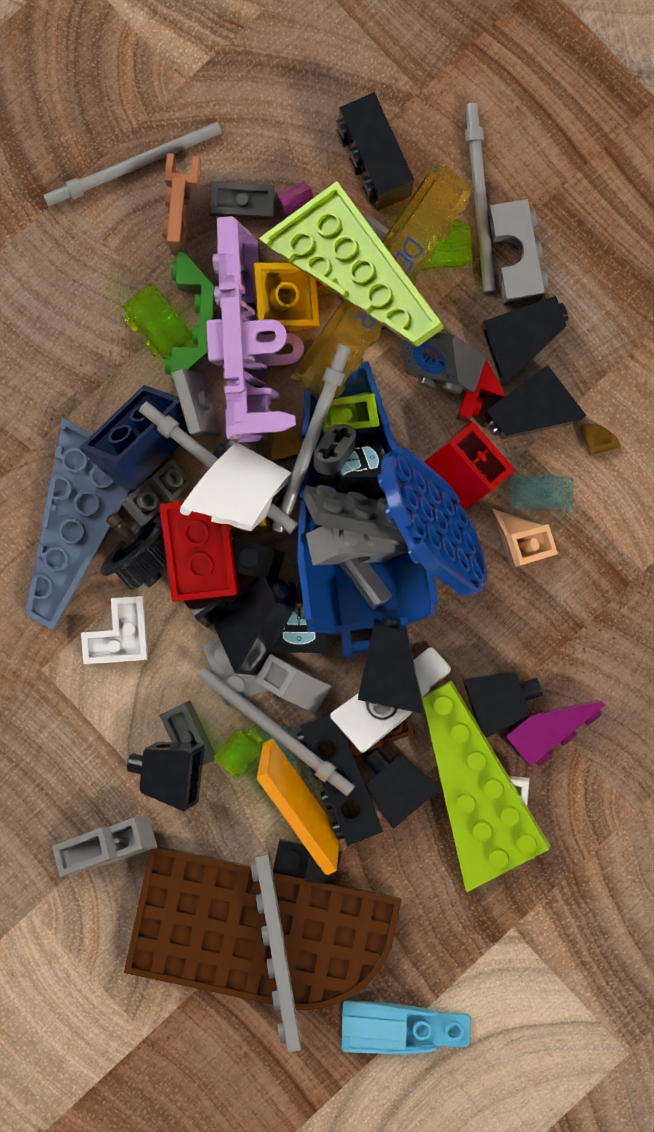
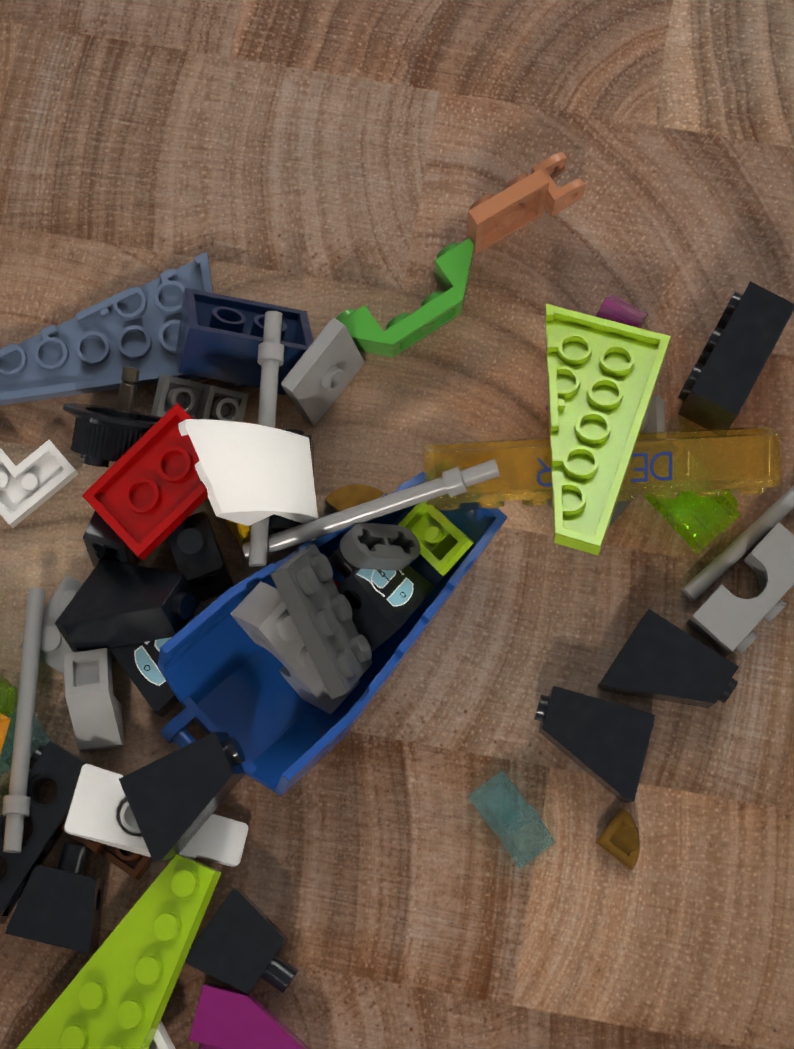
camera: 55 degrees right, 10 degrees down
(76, 188) = (458, 98): light grey bar -> none
(156, 321) = (381, 271): clear neon green brick -> none
(240, 340) = (408, 360): lavender piece -> none
(242, 200) = (577, 267): dark grey plate -> none
(285, 295) = (505, 380): yellow slope -> none
(366, 582) = (264, 696): light grey slope -> none
(432, 522) = (375, 709): blue plate -> none
(444, 362) = (570, 598): dark grey slope -> none
(470, 464) = (480, 713): red slope -> none
(488, 386) = (580, 656): red slope -> none
(524, 539) = (445, 839): light nougat slope -> none

